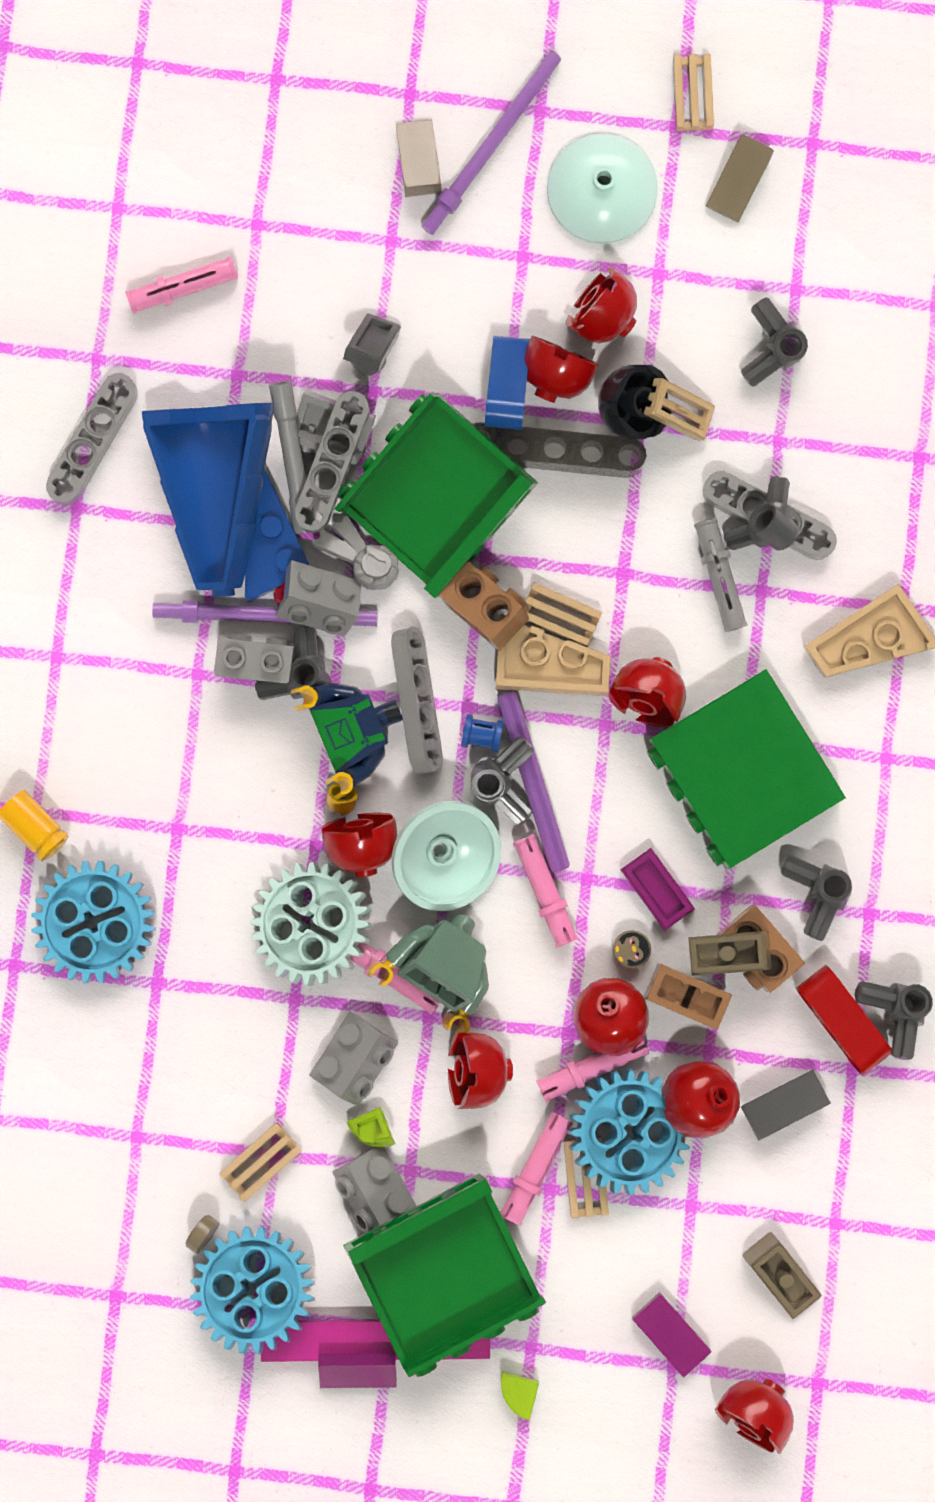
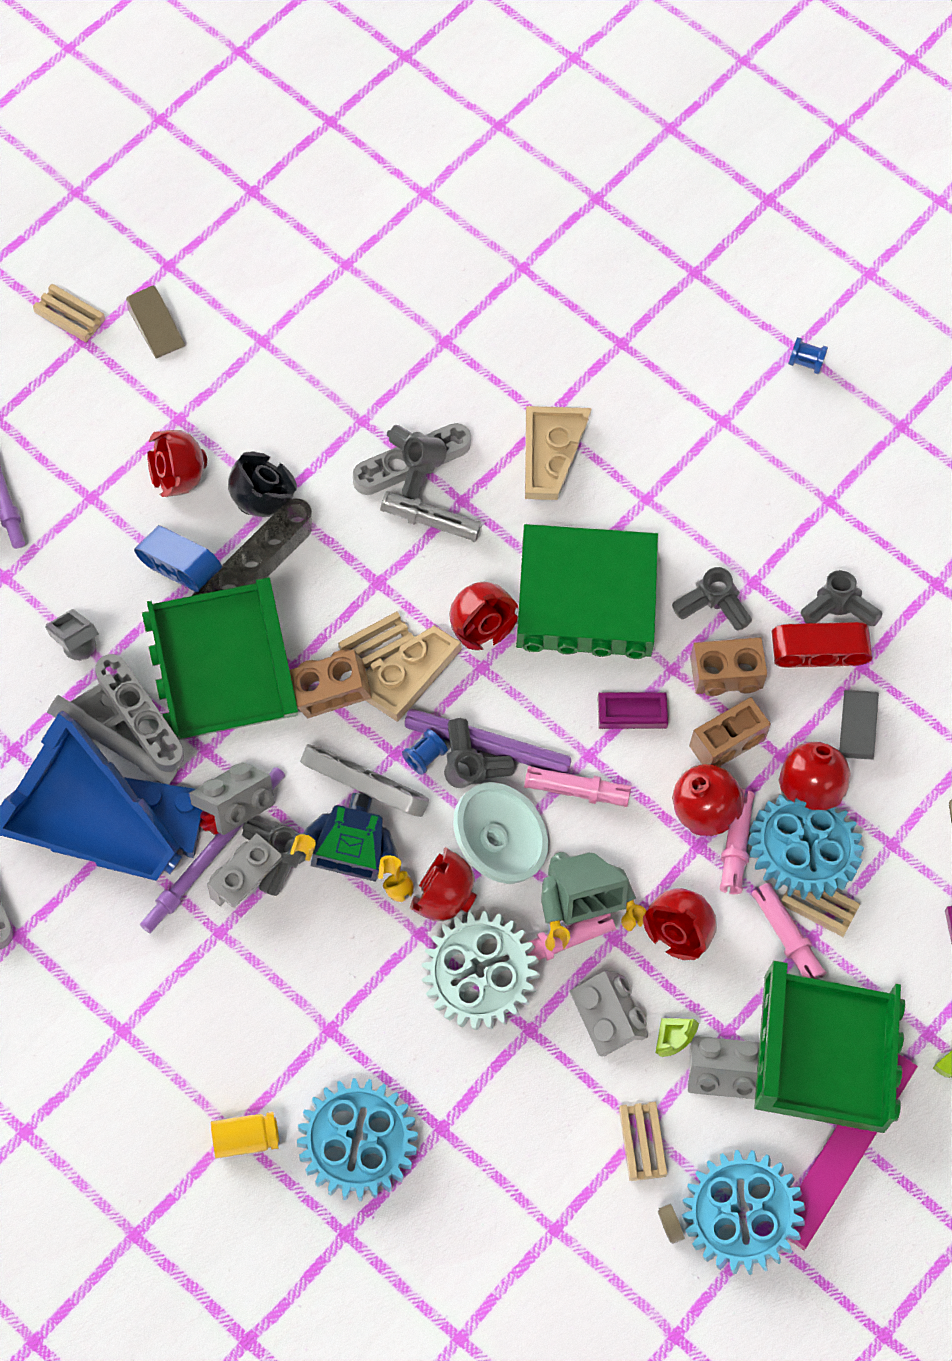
camera: 60 degrees left, 20 degrees down
(357, 1370) = (863, 1174): magenta tile -> none
(372, 565) = (236, 745): light grey piece -> none
(557, 370) = (196, 519): red cylinder -> none
(602, 211) = (91, 428): light aqua dish -> none
(631, 949) = (665, 757): dark tan tile -> none
(658, 401) = (293, 465): tan tile -> none
(730, 953) = (718, 680): dark tan slope -> none
(777, 330) = (299, 379): dark grey axle -> none

